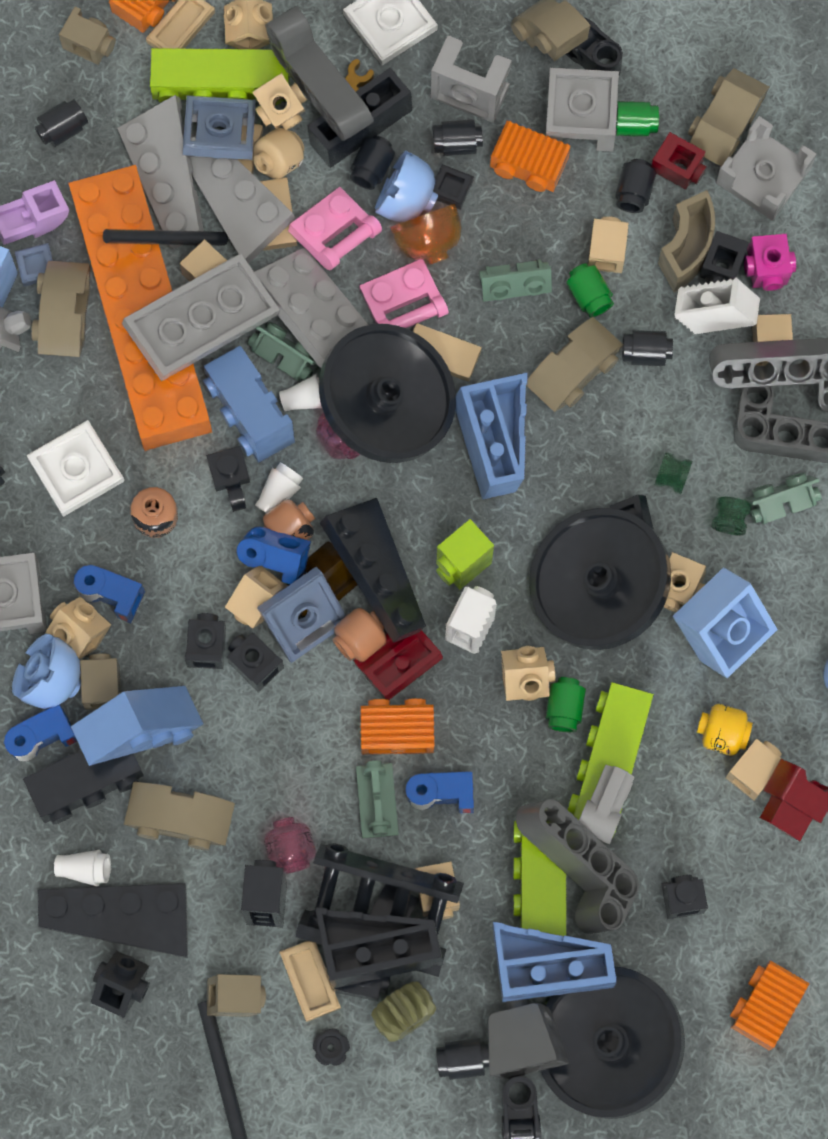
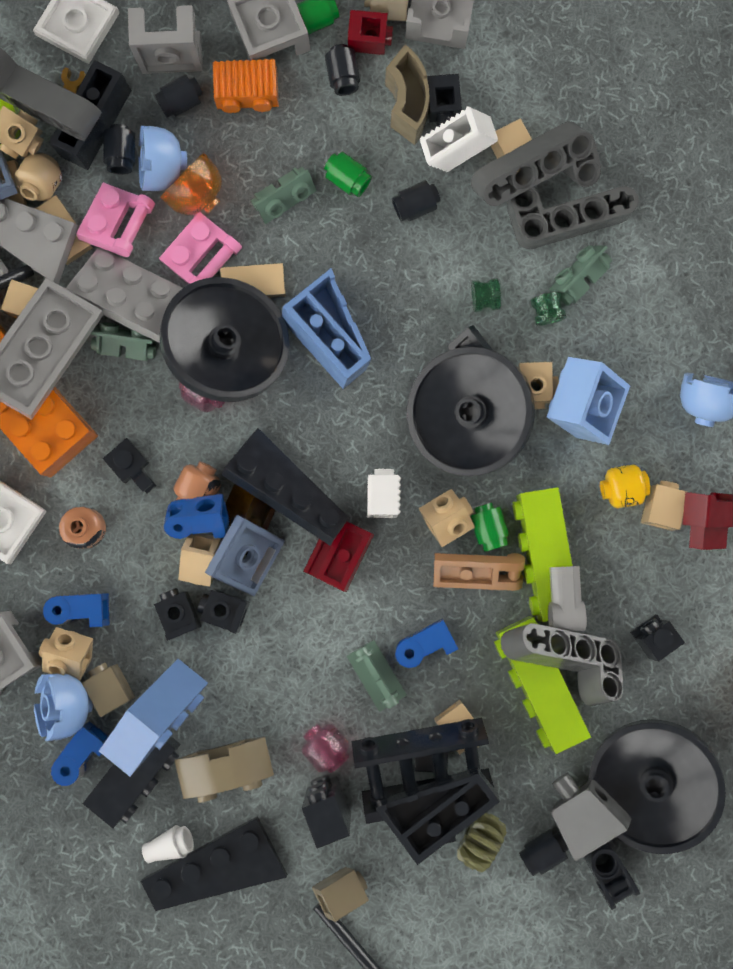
camera: 25 degrees left, 10 degrees up
(120, 983) = (244, 930): black brick -> none
(248, 405) = (115, 401): medium blue wedge -> none
(280, 485) = (174, 457): white cone -> none
(302, 395) = (155, 372): white cone -> none
(310, 980) = (388, 847): tan tile -> none
(321, 1045) = (436, 901): black plate -> none
(359, 635) = (298, 549): nougat head -> none
(397, 727) = (365, 610): orange brick -> none
(452, 186) = (194, 139): black tile -> none
(464, 555) = (351, 445): lime brick -> none
(531, 743) = (478, 571): none -> medium nougat plate
(549, 964) = (586, 756): medium blue wedge -> none
(564, 375) = (361, 252): dark tan brick -> none
(608, 244) = (344, 129): tan brick -> none
(769, 262) = (481, 82): dark pink brick -> none

